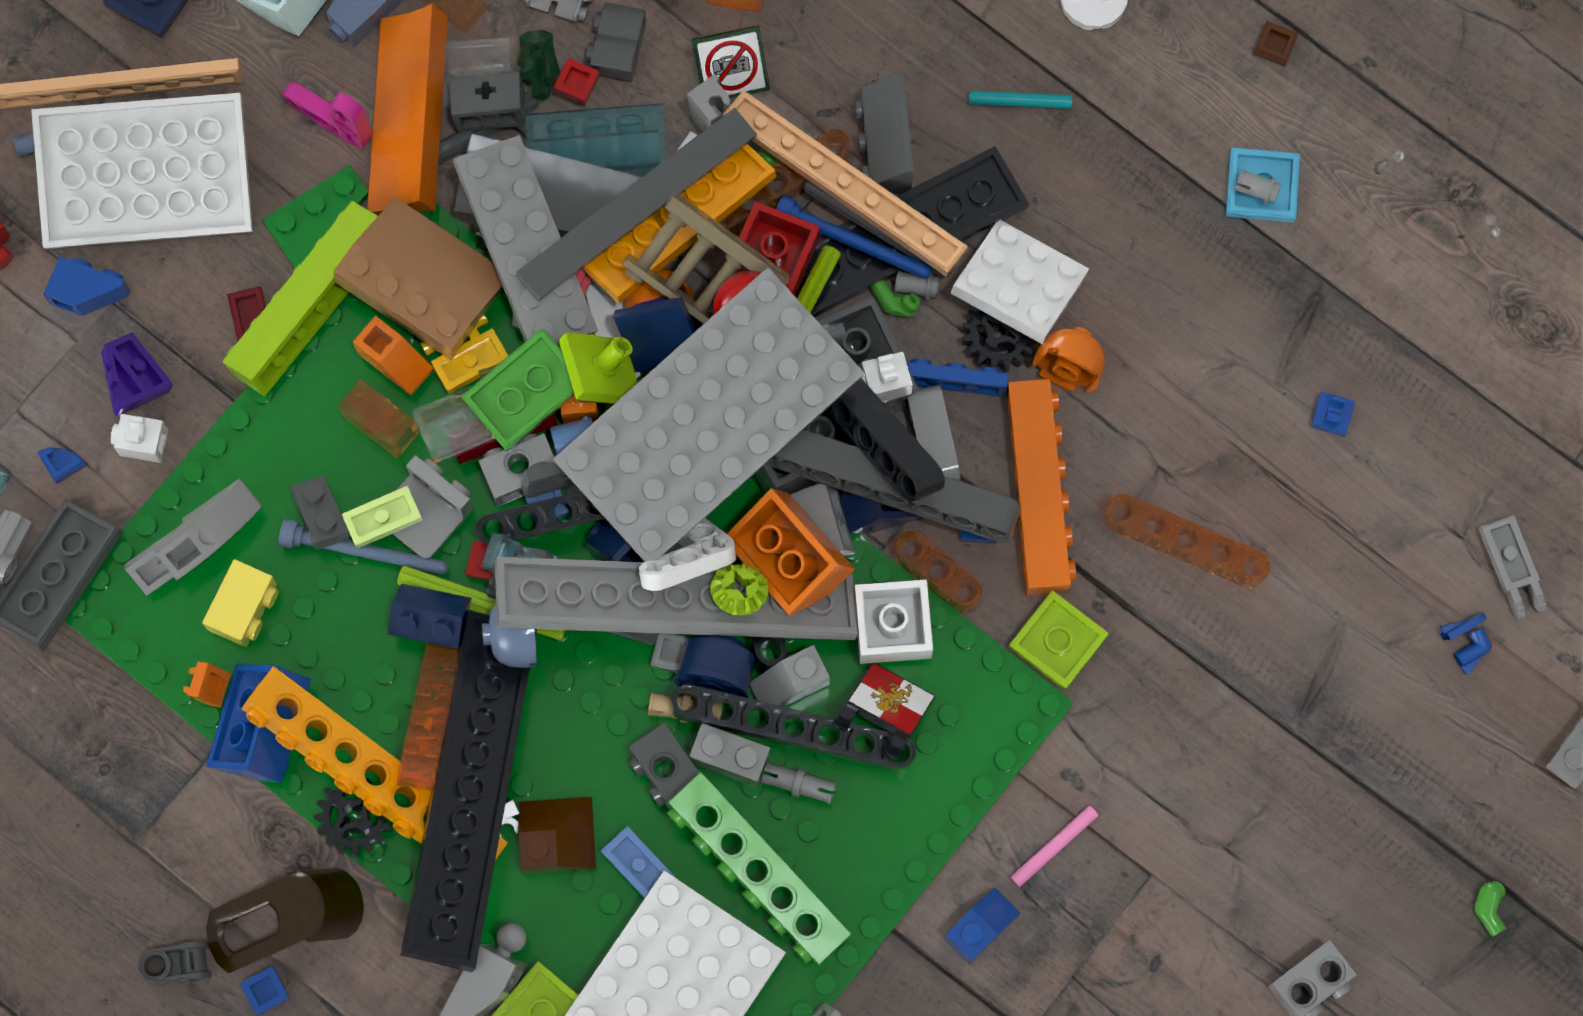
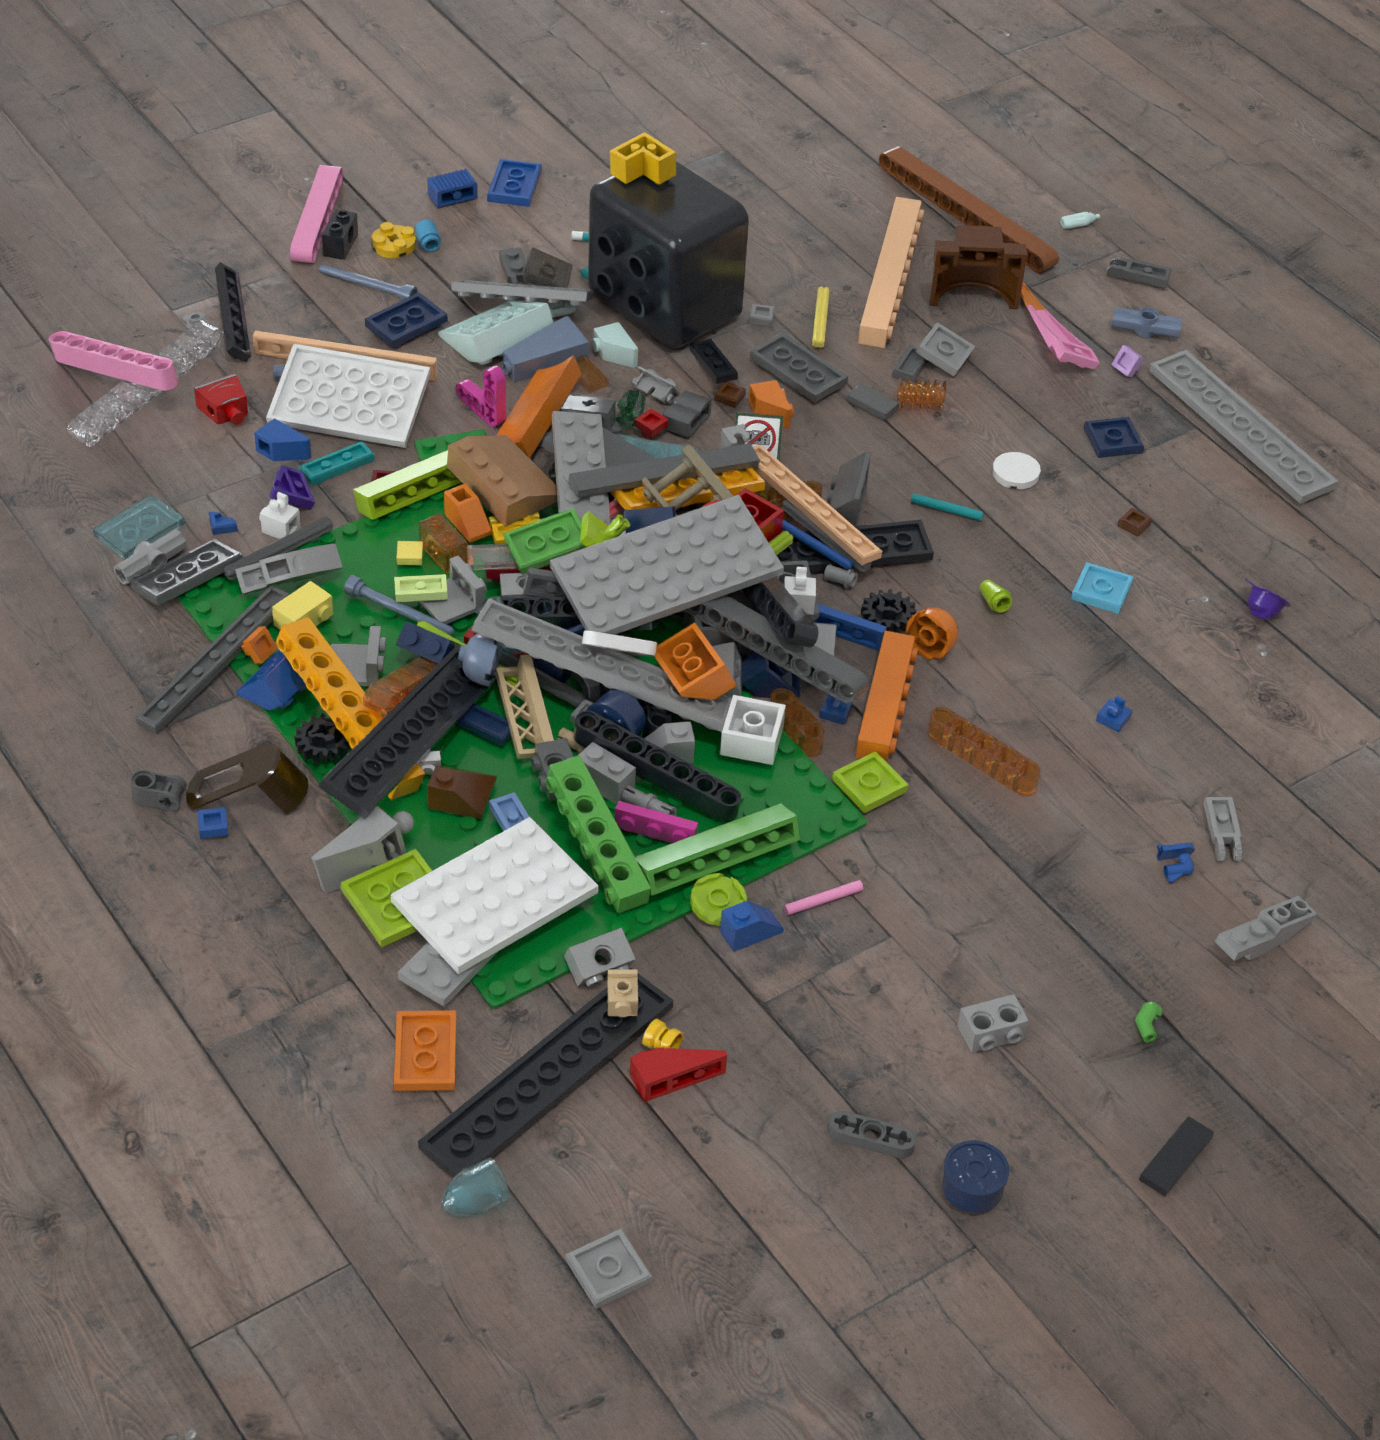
camera: 15 degrees right, 30 degrees down
(155, 718) = (209, 662): none -> dark grey tile
(161, 494) = (282, 545): none -> dark grey axle
(171, 295) = (337, 463): none -> teal tile
(319, 512) = (380, 579): dark grey plate -> none
(338, 443) = (409, 552): none -> light yellow tile
(344, 668) = (364, 660): none -> light grey bracket
(553, 714) = (486, 724): none -> dark blue tile
(606, 683) = (533, 703): none -> tan fence
(732, 600) = (650, 669): lime gear -> none
(819, 818) = (653, 823): none -> dark pink plate
(889, 703) = (730, 770): flag -> none
(893, 304) = (826, 585): bright green arm -> none
(908, 834) = (719, 848): none -> bright green brick
(930, 900) = (714, 894): none -> lime tile
(1019, 281) = (912, 585): white plate -> none
(1129, 253) = (996, 596): none -> lime cone
(1258, 186) = (1102, 582): light grey pin -> none
(1480, 145) = (1265, 603): none -> dark purple piece

